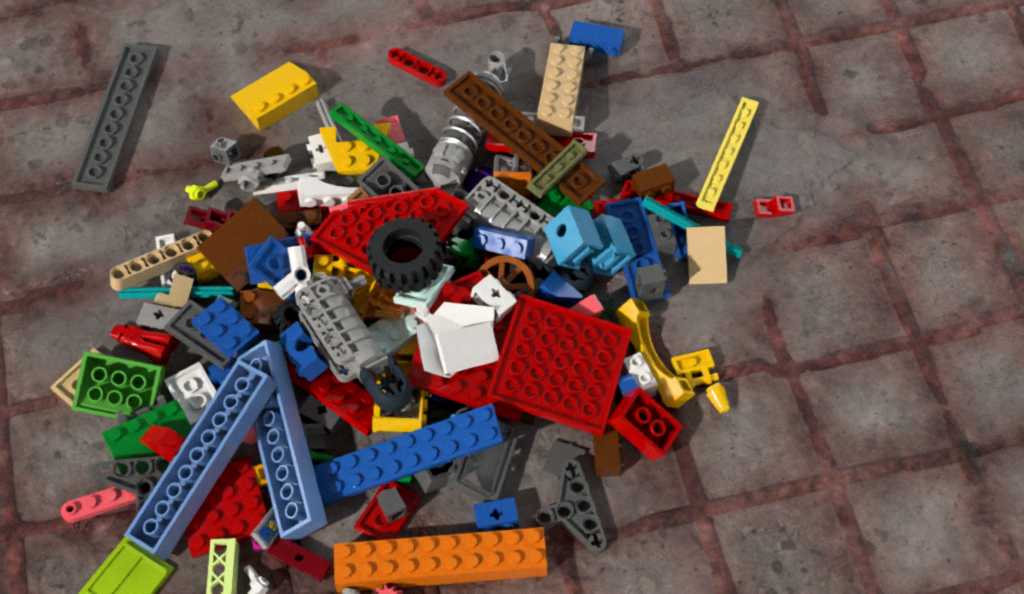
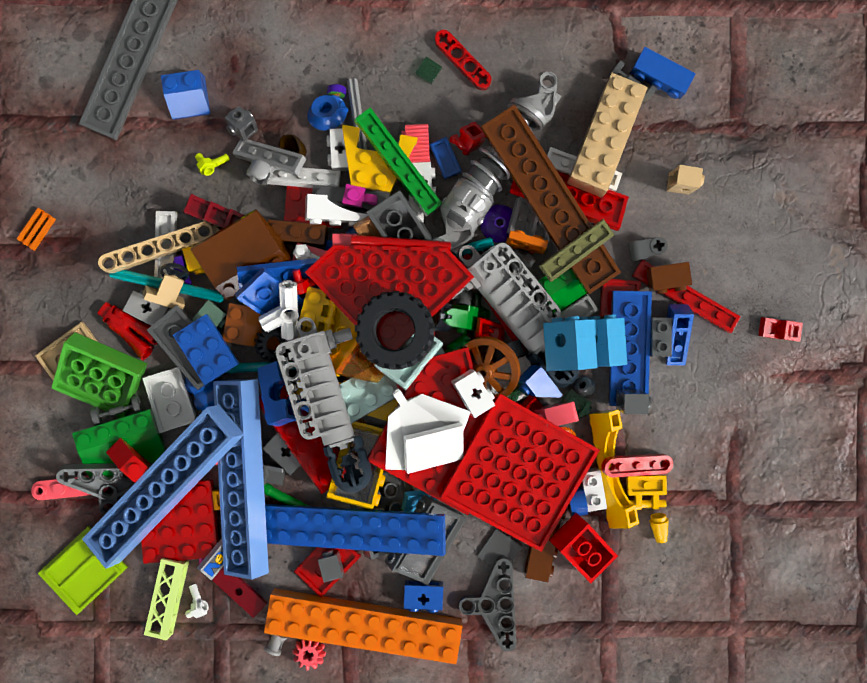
camera: 10 degrees right, 30 degrees up
(36, 278) = (36, 228): none -> orange tile
(169, 141) = (186, 94): none -> slope
(276, 95) = (306, 58): yellow slope -> none
(302, 126) = (327, 112): none -> blue piece
(308, 111) = (336, 89): none -> dark purple tile
(345, 177) = (356, 196): none -> dark pink plate
(388, 81) = (428, 70): none -> clear green tile
(419, 142) = (445, 158): none -> blue tile
(437, 118) = (470, 138): none -> red piece
(503, 242) = (499, 323): brick -> none
(604, 291) = (584, 386): none -> dark grey piece
(642, 106) = (685, 179): none -> tan brick
(675, 342) = (637, 465): none -> plate
(683, 222) = (690, 341): teal axle -> none
(706, 255) = (696, 375): tan tile -> none
(727, 155) = (755, 257): light yellow plate -> none

